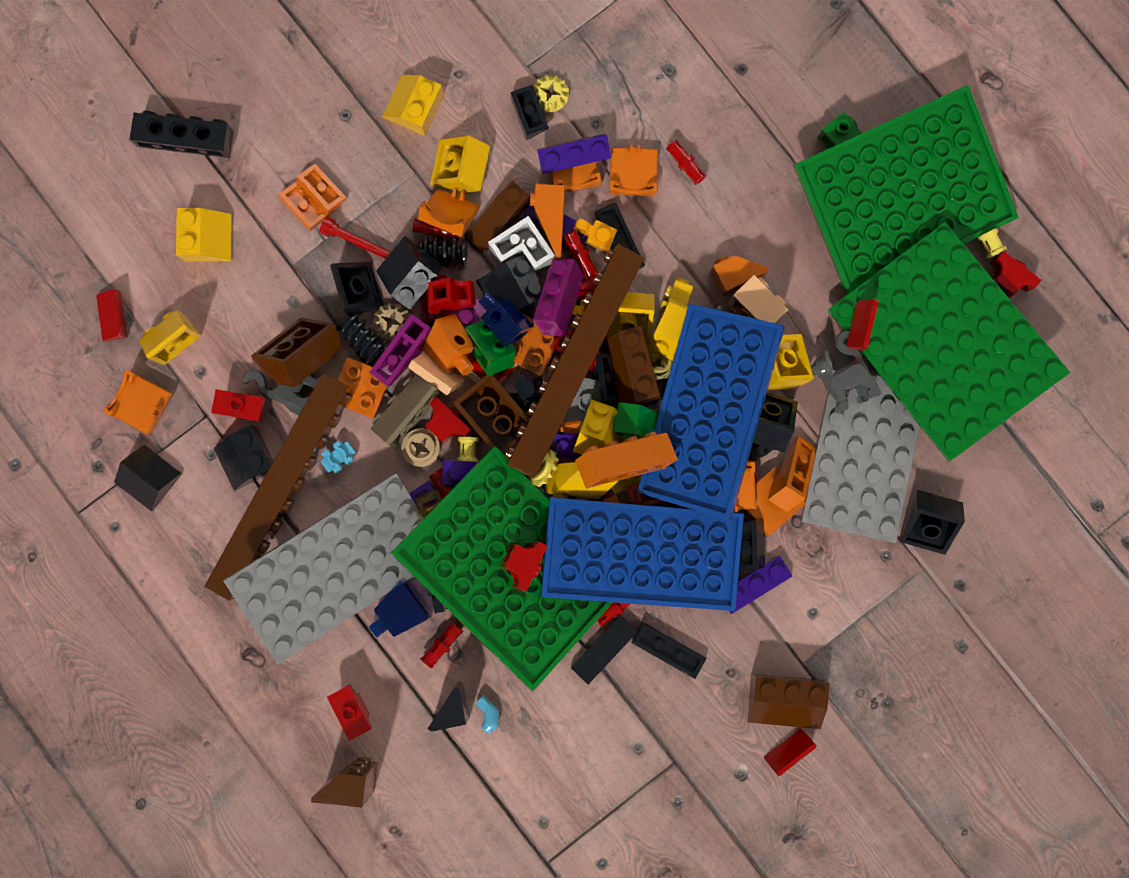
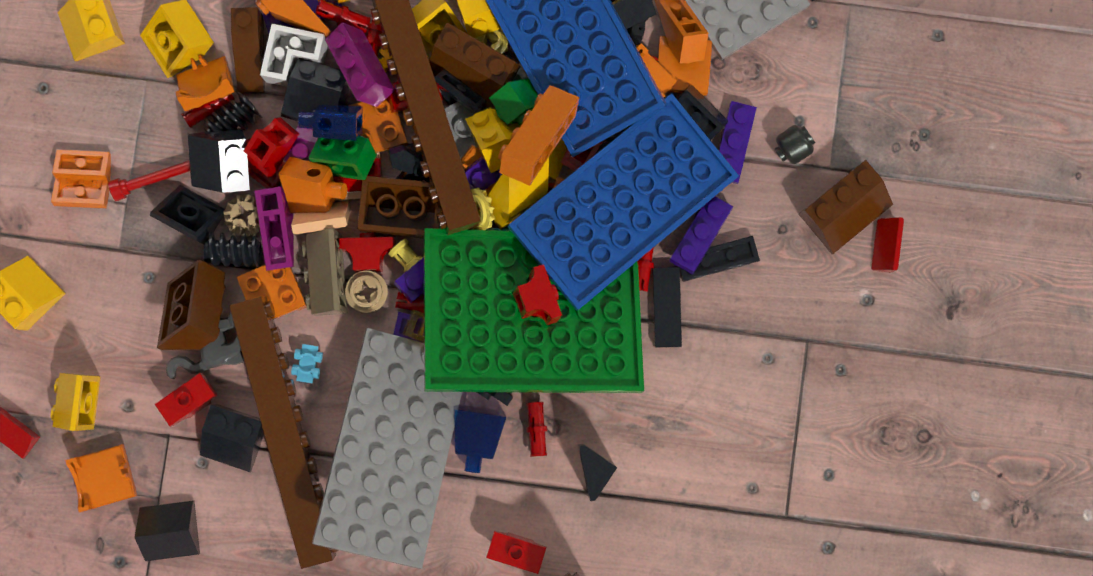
camera: 45 degrees left, 0 degrees up
(491, 714) = (629, 445): medium azure arm -> none
(672, 624) = (701, 234): none -> dark purple plate
(793, 625) = (794, 144): none -> pearl dark grey head

